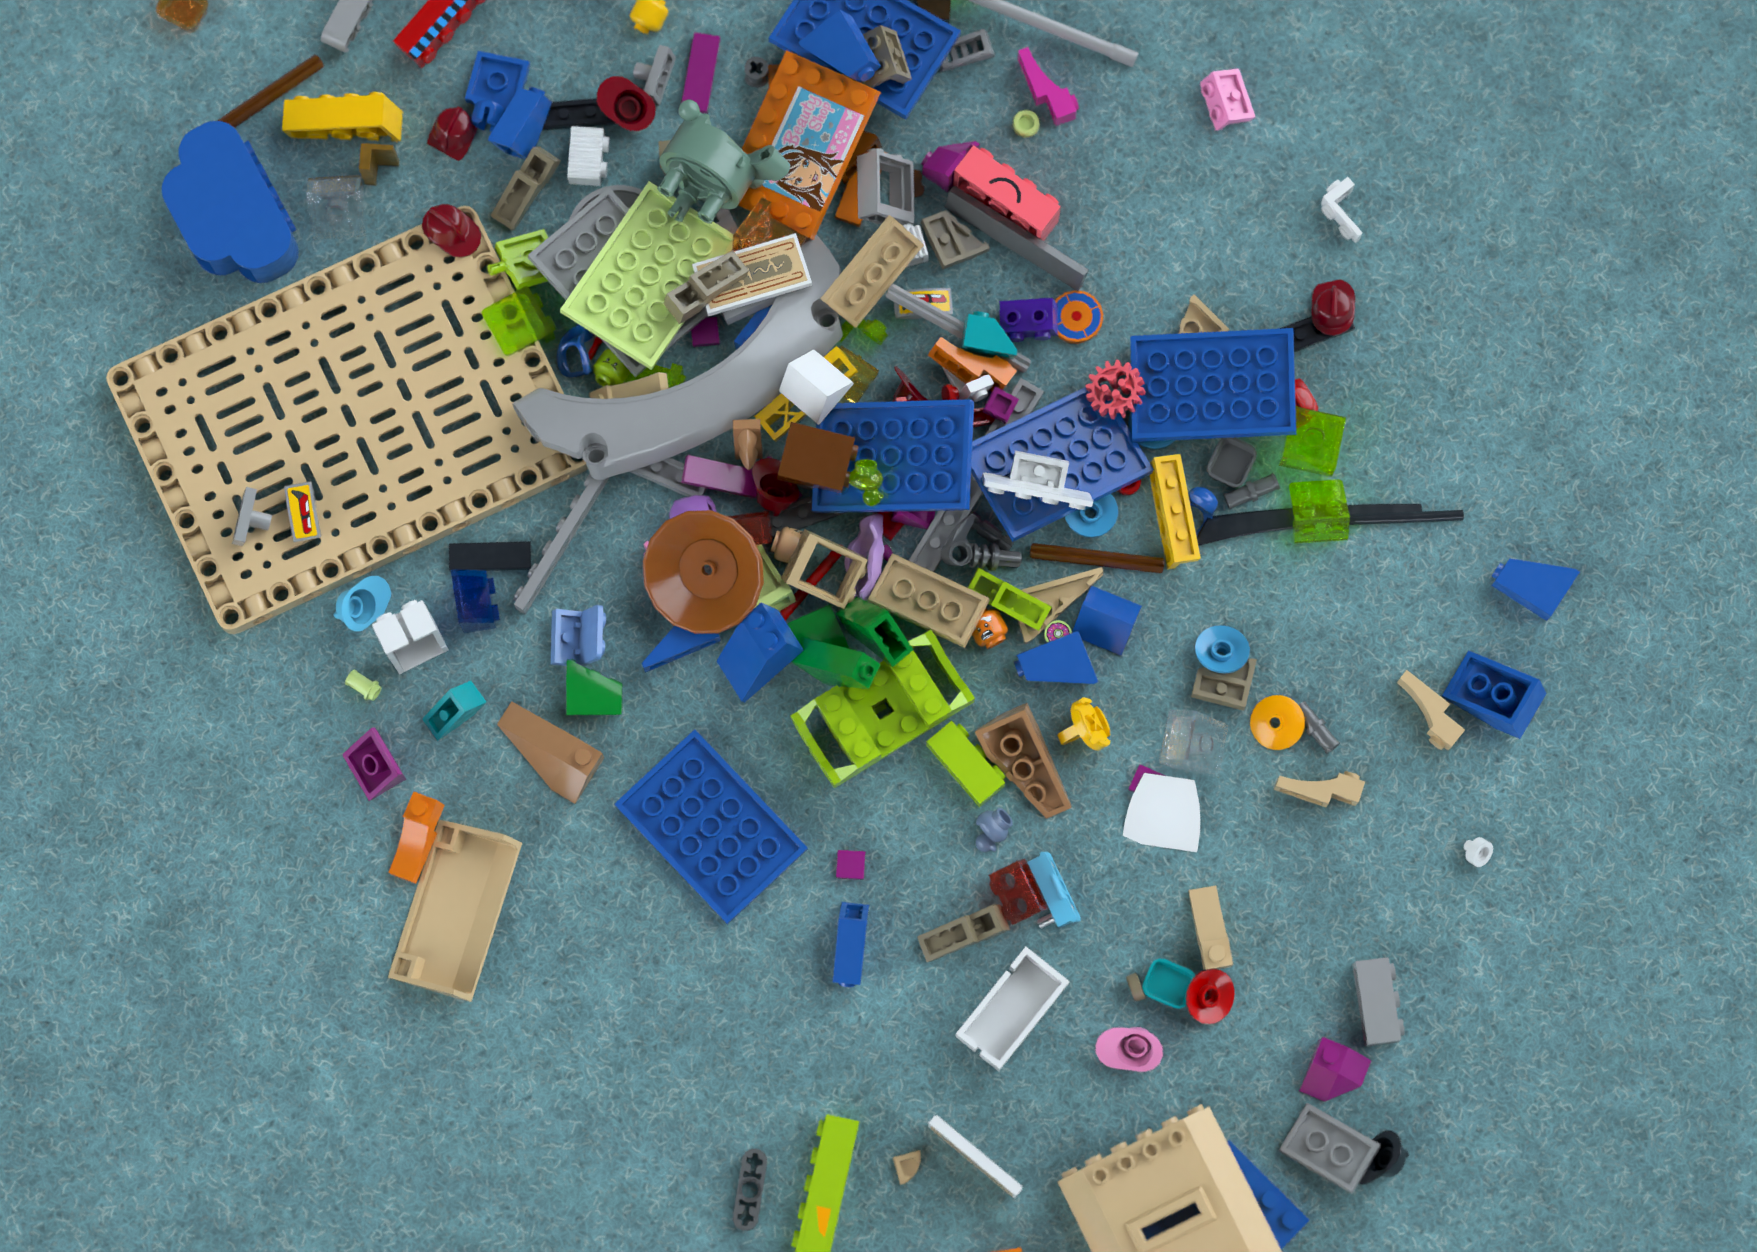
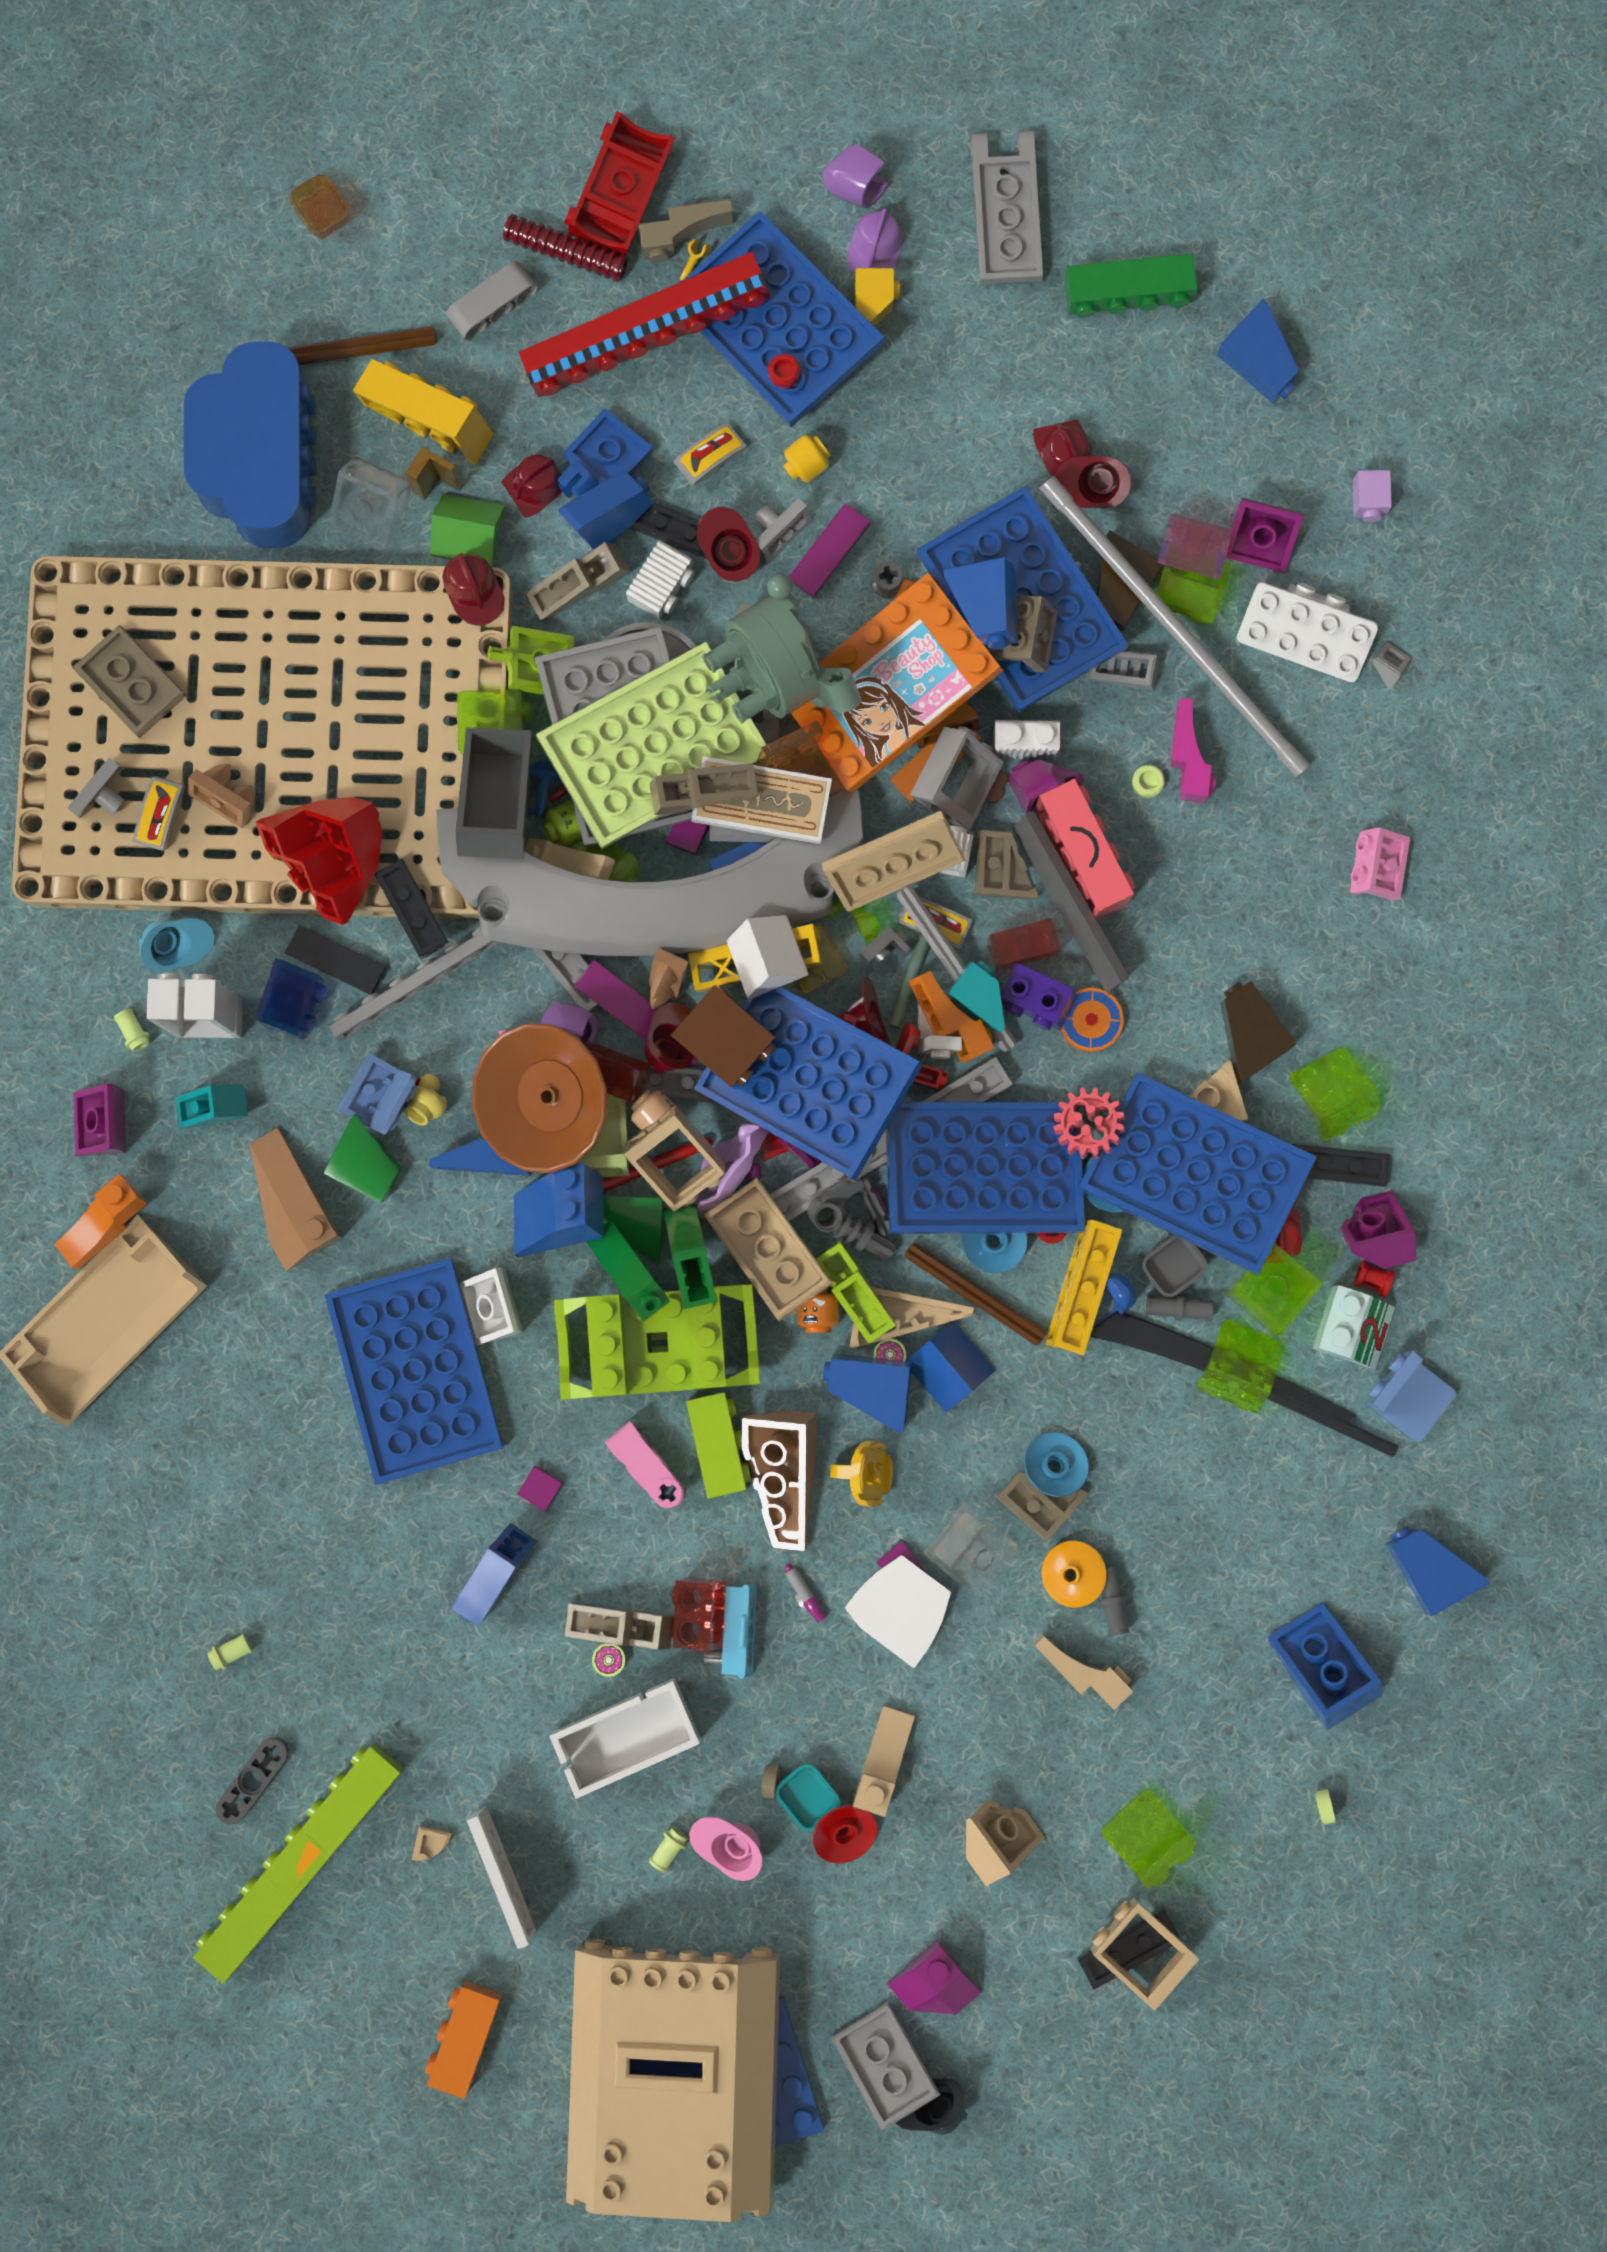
camera: 30 degrees right, 5 degrees up
(227, 426) = (129, 681): none -> dark tan tile
(336, 475) = (211, 791): none -> medium nougat tile
(419, 189) = (465, 527): none -> bright green slope
(446, 474) = (329, 850): none -> red brick
(530, 486) = (411, 909): none -> black tile
(552, 367) = (494, 793): none -> dark grey piece
(574, 45) = (709, 454): none -> slope
(617, 624) = (426, 1102): none -> light yellow animal
(682, 1104) = (229, 1652): none -> yellowish green pin
(743, 749) = (490, 1306): none -> white slope
(867, 478) = (767, 1090): clear neon green animal -> none
(893, 342) = (879, 948): none -> flat silver bracket
(920, 805) = (644, 1464): none -> bright pink piece
(921, 136) = (1026, 739): none -> white brick
(928, 362) = (906, 991): none -> sand green bar
(968, 962) = (608, 1659): none -> tile
(995, 829) = (710, 1530): sand blue animal -> none
(998, 286) = (1023, 944): none -> clear red brick
(1000, 405) = (957, 1076): magenta tile -> none
(1038, 477) = (951, 1183): white bracket -> none
(1086, 1076) = (668, 1849): none -> yellowish green pin
(1088, 841) = (804, 1596): none -> piece
(1198, 264) = (1252, 1031): none -> dark brown slope
(1283, 278) = (1336, 1092): none -> clear neon green bracket
(1324, 941) = (999, 1840): none -> tan slope
(1333, 307) = (1375, 1151): dark red piece -> none
(1336, 192) = (1428, 1042): white bracket -> none
(1368, 361) = (1380, 1231): none -> magenta slope
(1378, 1001) = (1021, 1935): light grey brick -> none
(1381, 398) = (1374, 1278): none -> red bush
(1385, 440) = (1353, 1326): none -> light aqua slope
(1432, 883) = (1149, 1838): none -> clear neon green bracket
(1442, 728) = (1247, 1674): tan slope -> none
(1452, 469) = (1410, 1396): none -> medium blue bracket
(1461, 972) = (1128, 1949): none -> black tile
(1478, 851) = (1216, 1828): white tile -> none
(1500, 972) = (1167, 1978): none -> tan window
(1548, 794) = (1325, 1807): none -> yellowish green tile

